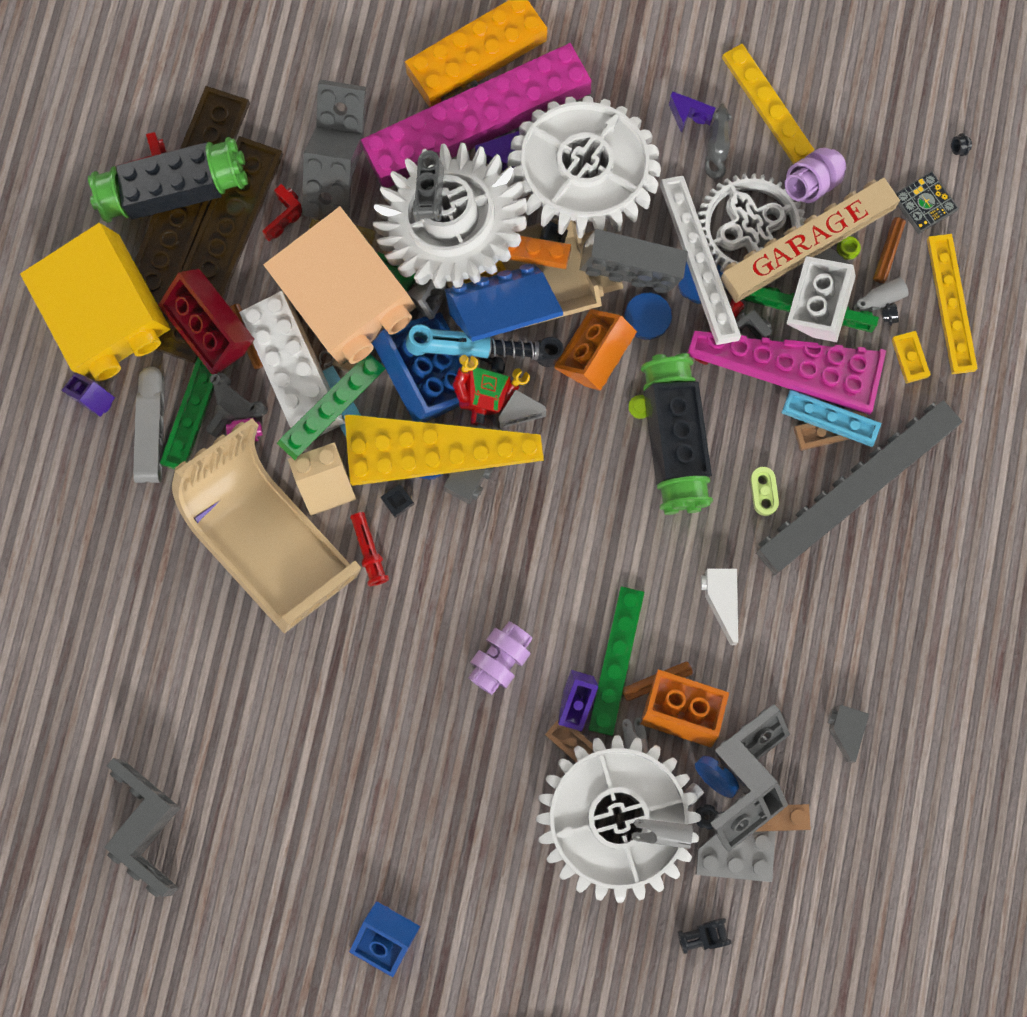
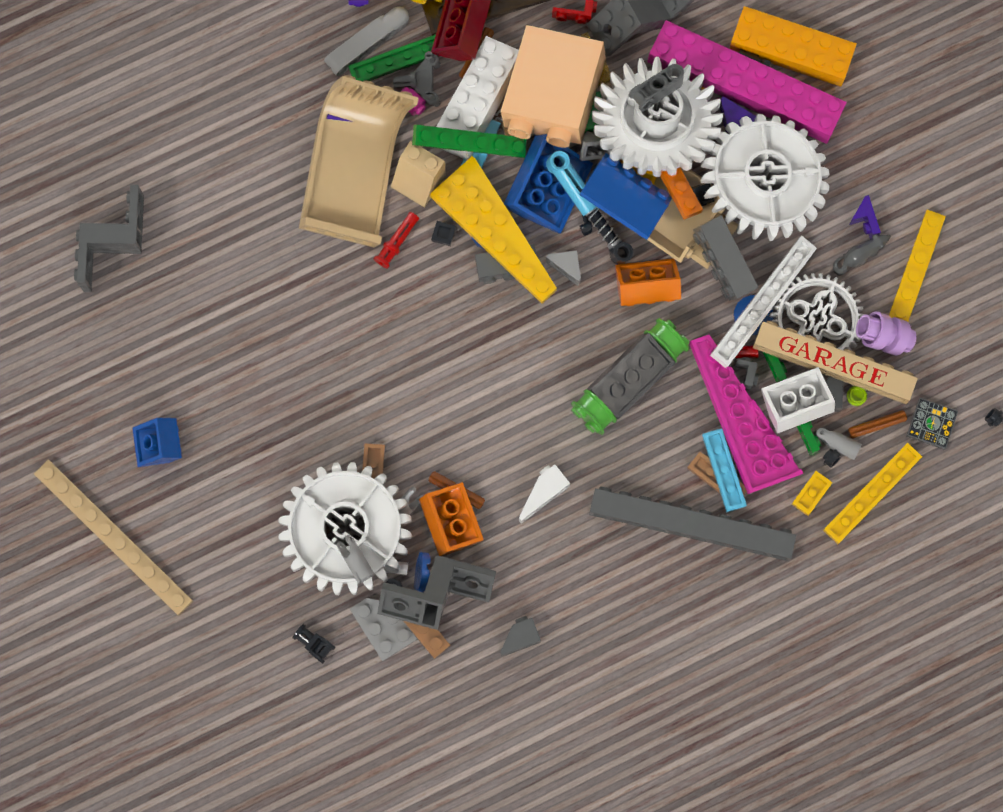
camera: 50 degrees right, 0 degrees up
(484, 390) = (559, 230): torso -> none
(495, 665) = (396, 376): lavender piece -> none
(577, 700) = (402, 446): dark purple slope -> none
(616, 661) = (449, 454): green plate -> none
(637, 407) = (629, 338): lime plate -> none
(648, 315) = (699, 299): blue tile -> none
(764, 491) = (639, 465): yellowish green plate -> none

